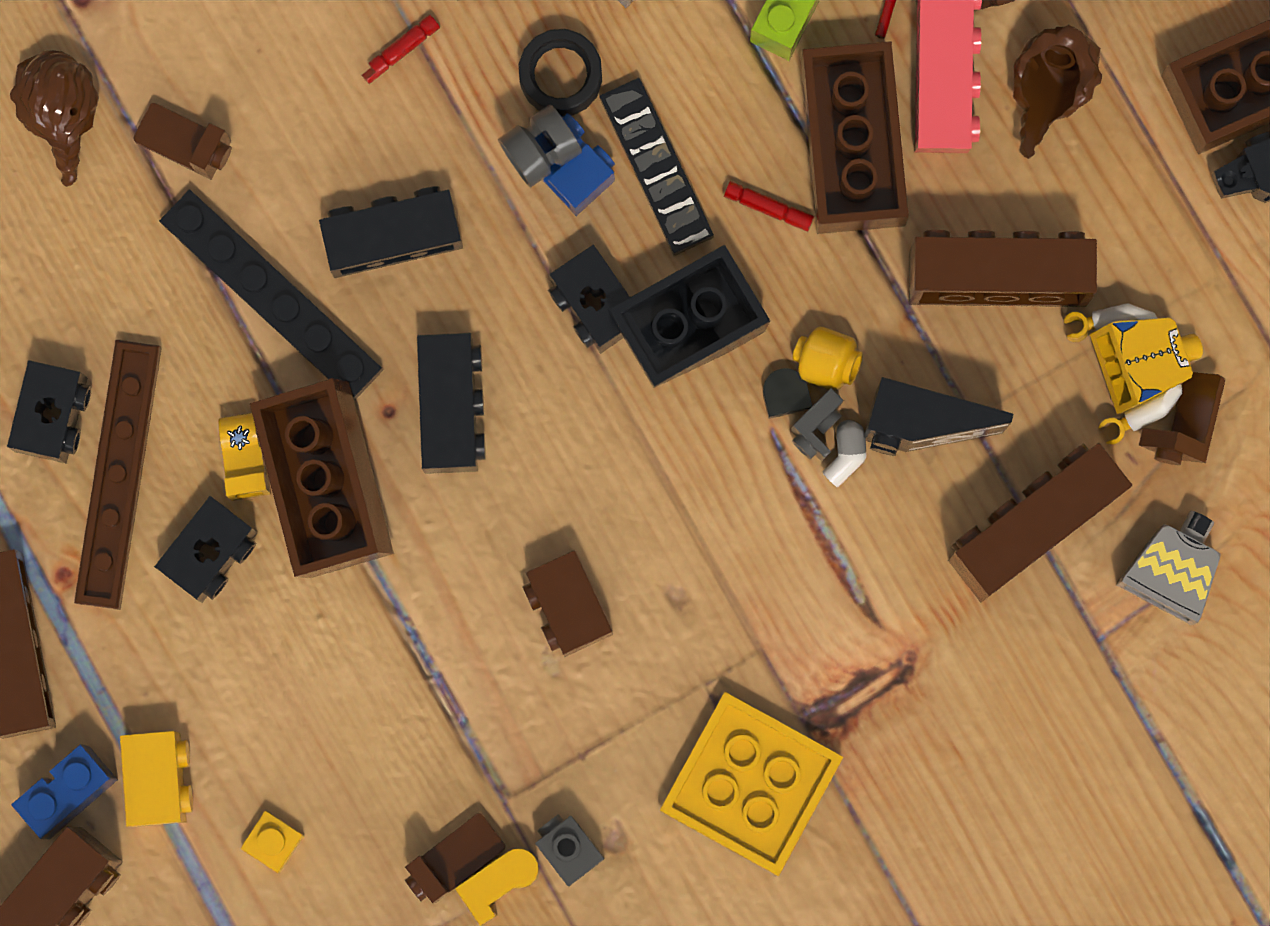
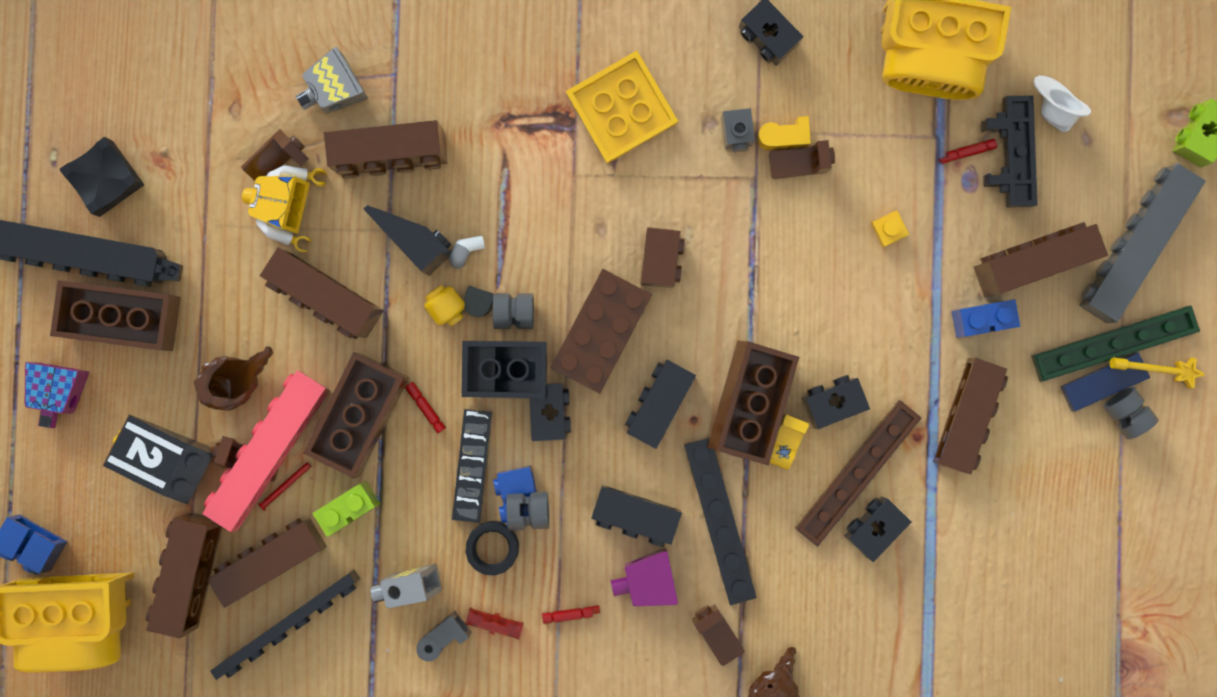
camera: 150 degrees left, 5 degrees up
(155, 778) = (933, 297): yellow brick -> none
(321, 154) = (648, 581): none -> magenta torso
(589, 452) = (601, 331): none -> reddish brown brick
(727, 407) = (513, 311): none -> dark grey wheel
(821, 417) = (468, 276): dark grey bracket -> none

